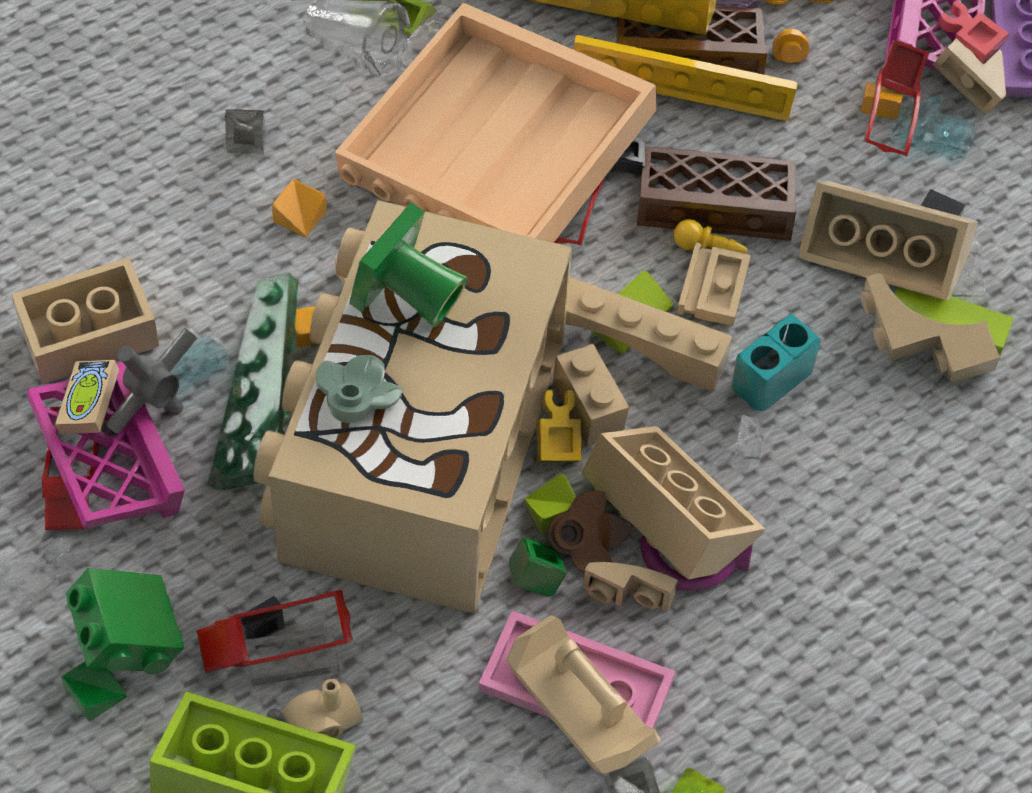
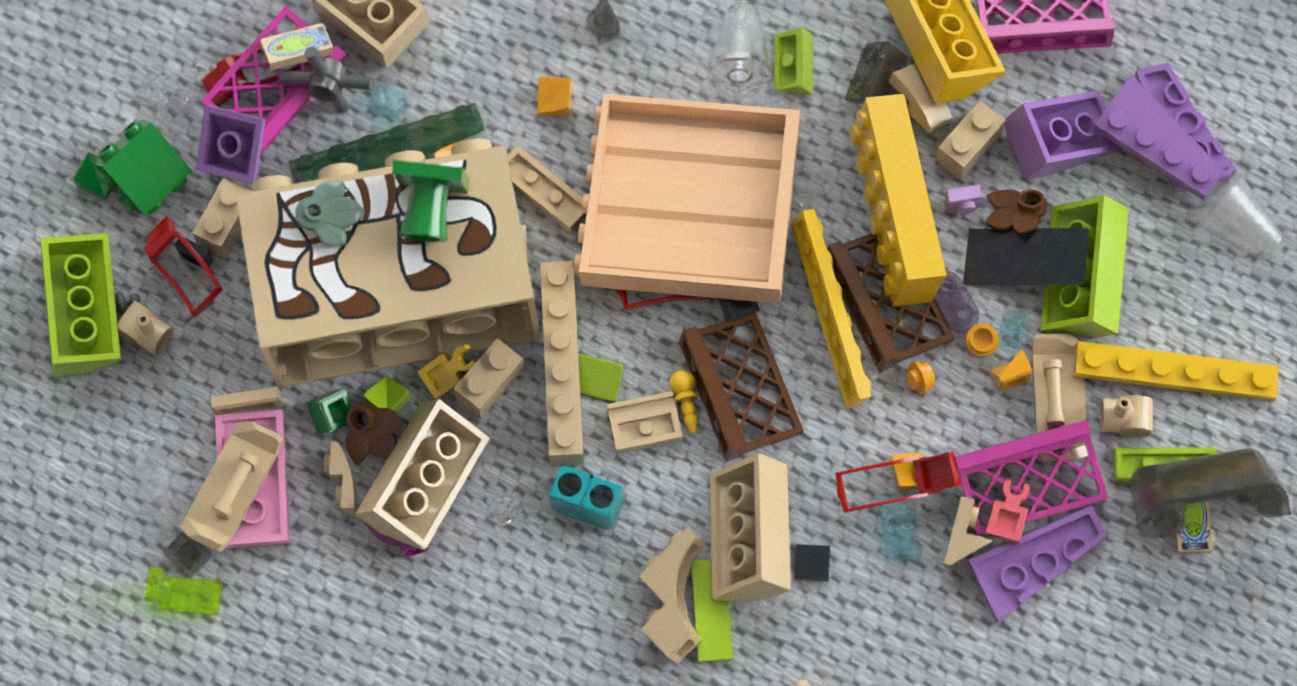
camera: 70 degrees right, 15 degrees up
(165, 506) = (230, 144): none -> medium lavender slope
(238, 566) = (220, 222): none -> tan brick
(480, 644) = (247, 401): none -> tan tile

